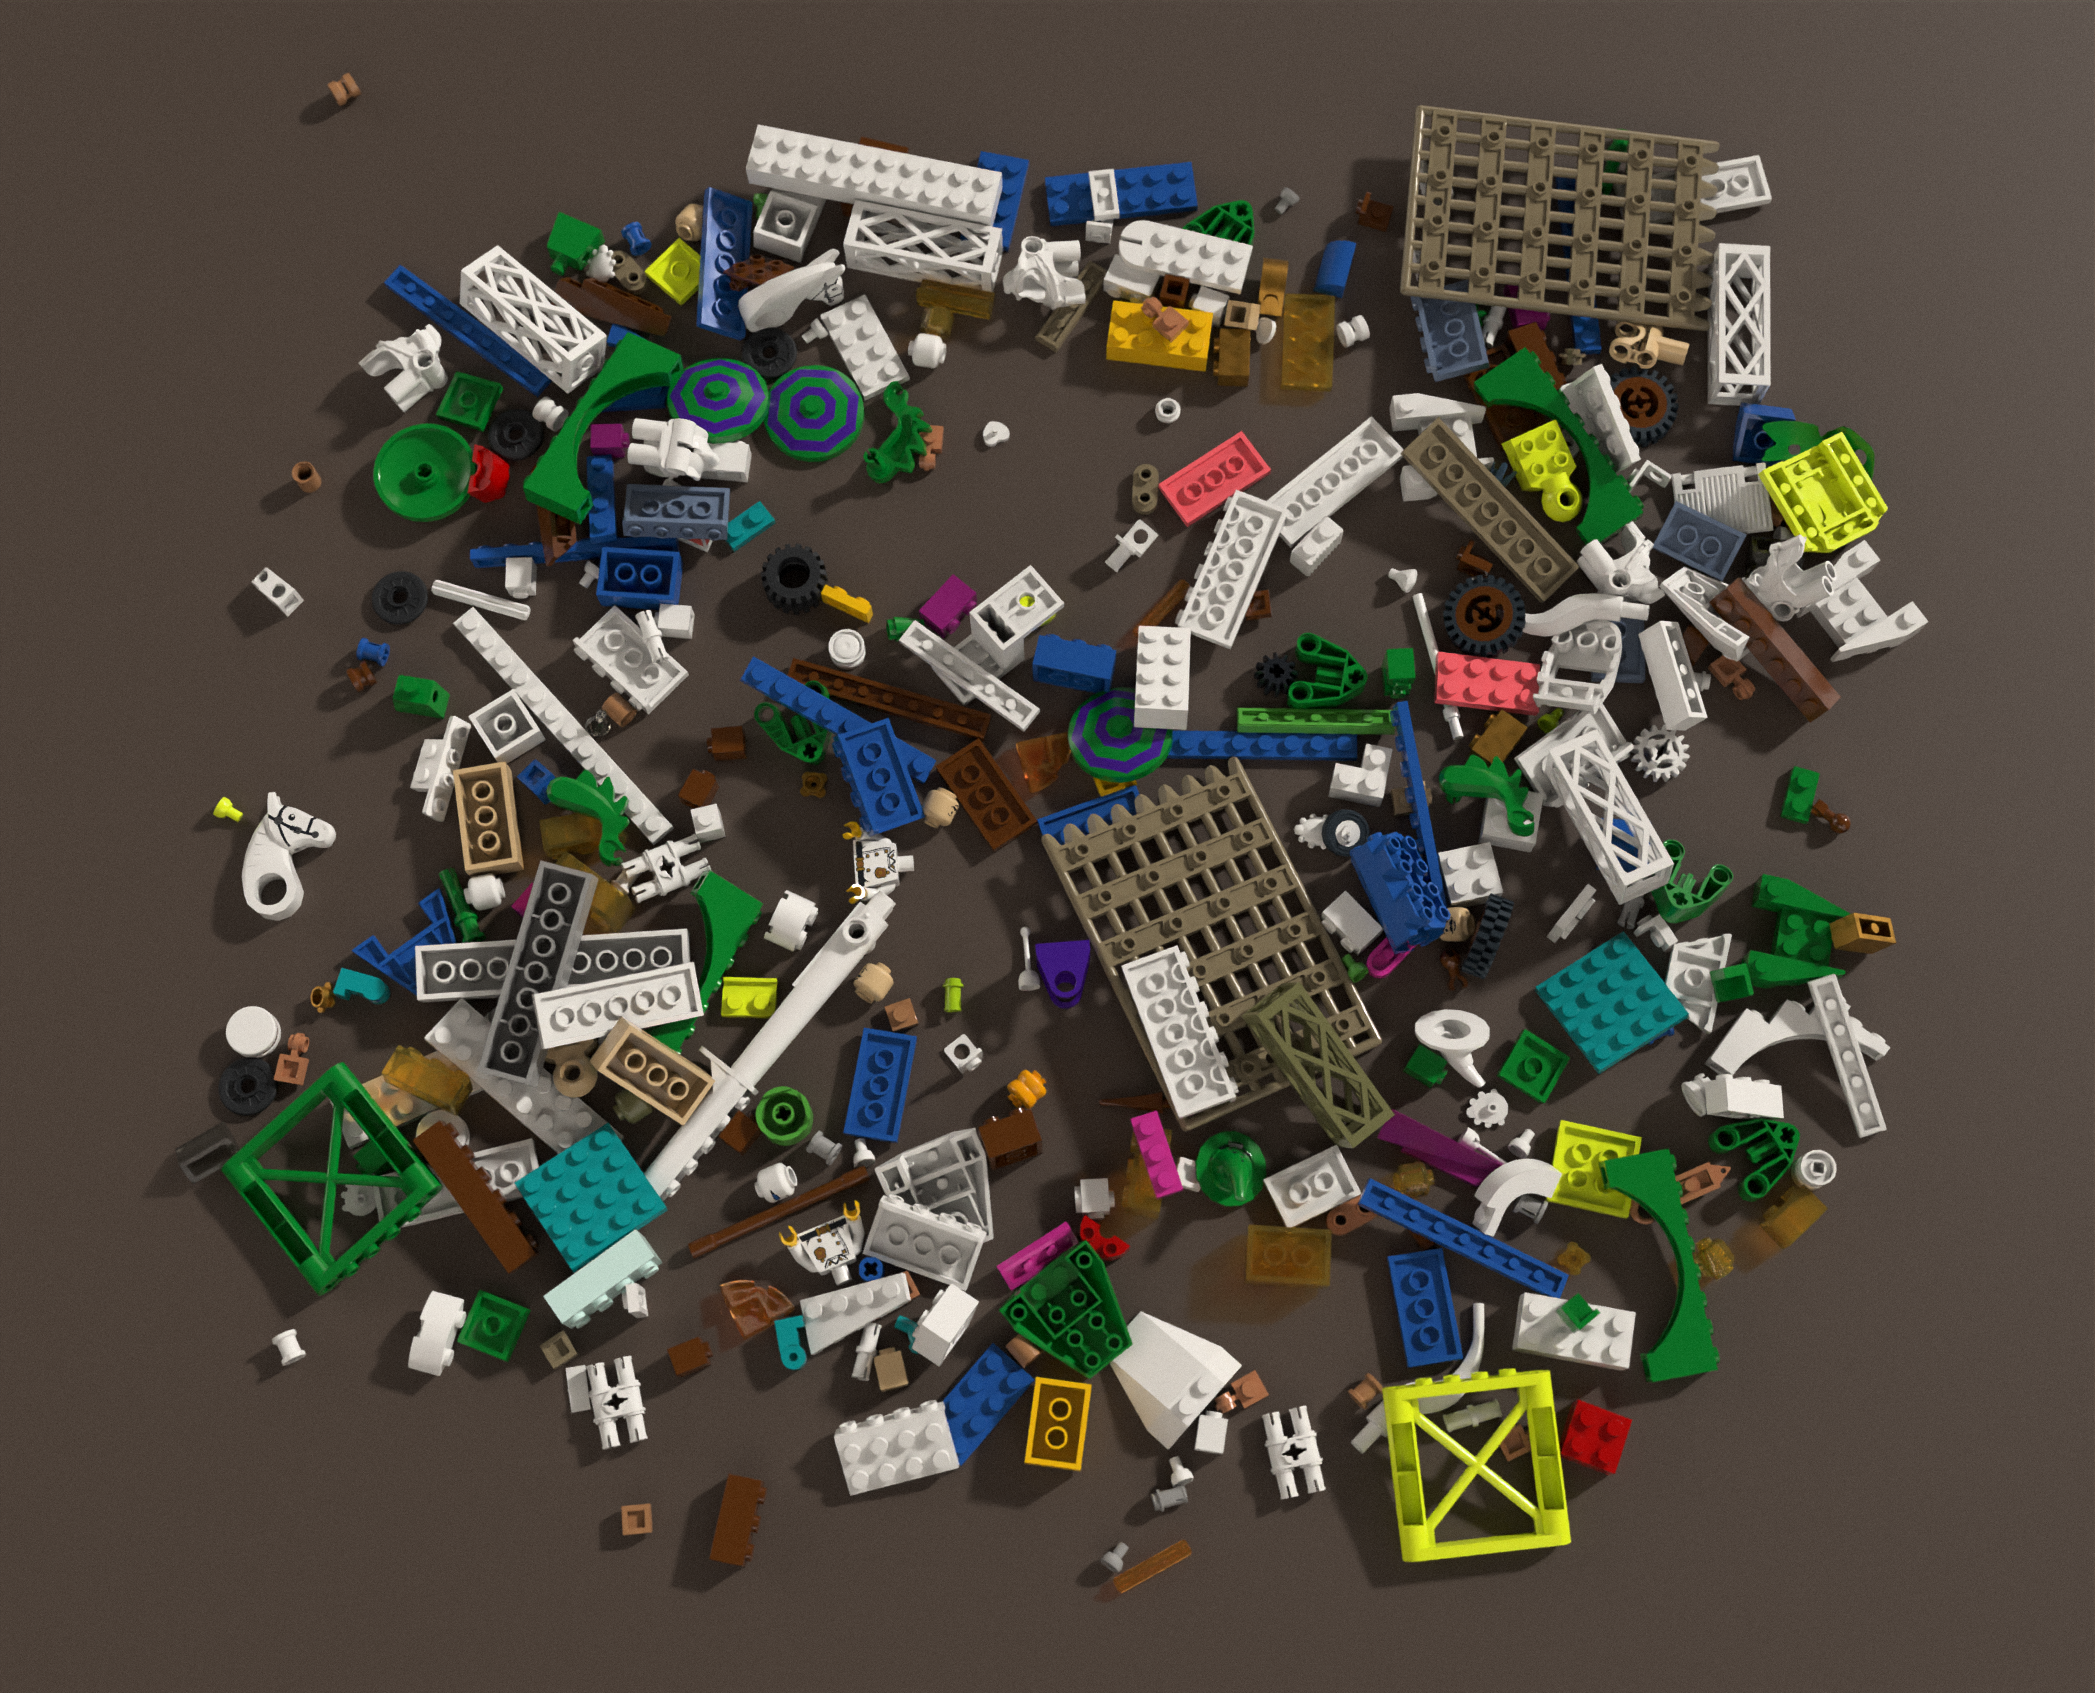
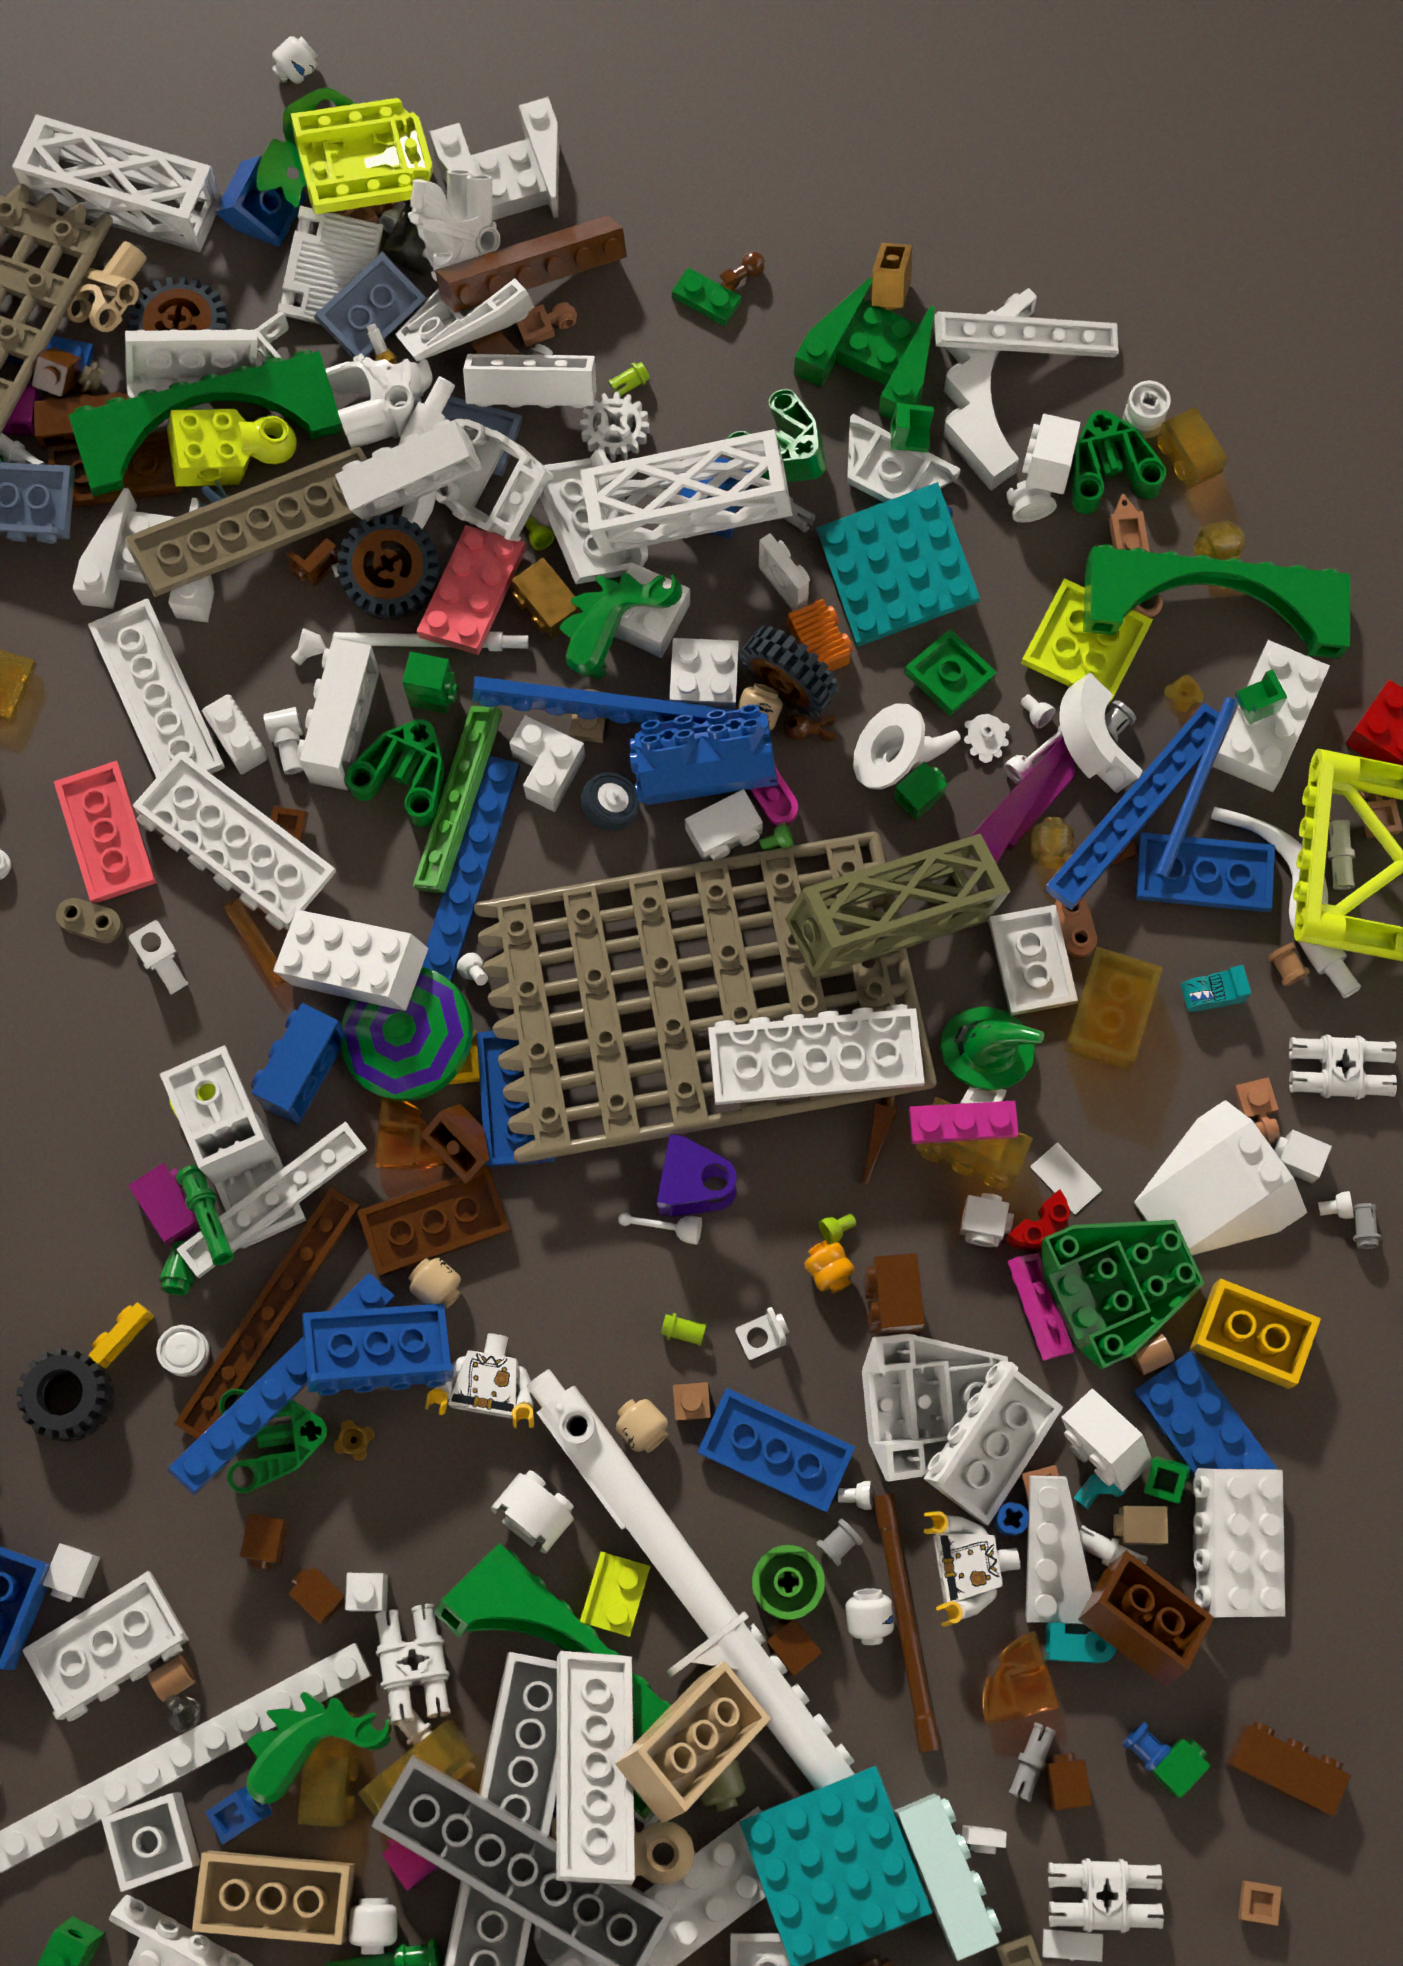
camera: 75 degrees left, 0 degrees up
(652, 637) = (85, 1607): white pin -> none
(699, 1327) = (1032, 1762): none -> light grey pin
(720, 1438) = (1181, 1767): none -> green brick
(729, 1409) = (1146, 1746): none -> blue bush
(820, 1384) = (1146, 1618): none -> reddish brown brick
(929, 1380) = (1167, 1479): none -> green brick
(952, 627) = (201, 1201): none -> green pin
(1048, 793) = (458, 1141): none -> reddish brown slope
(1057, 1086) = (833, 1229): none -> lime piece
(1146, 1255) = (1064, 1173): none -> white sticker
(1184, 767) = (471, 967): none -> white piece
(1267, 678) = (391, 836): black gear -> none
(1311, 831) = (593, 840): white piece -> none
(1328, 1336) = (1216, 990): none -> teal leg
(1331, 580) = (285, 731): none -> white pin
(1354, 613) = (338, 713): none -> white brick
(1490, 1282) = (1196, 788): none -> blue piece
(1529, 956) = (817, 629): none -> orange brick
(1560, 604) = (408, 470): none -> white brick
(1566, 330) = (56, 371): none -> reddish brown brick
(1660, 565) = (379, 345): none -> white piece
(1660, 931) = (828, 487): white bracket -> none
(1705, 754) = (630, 379): none -> lime pin
(1896, 422) = (294, 60): none -> white head

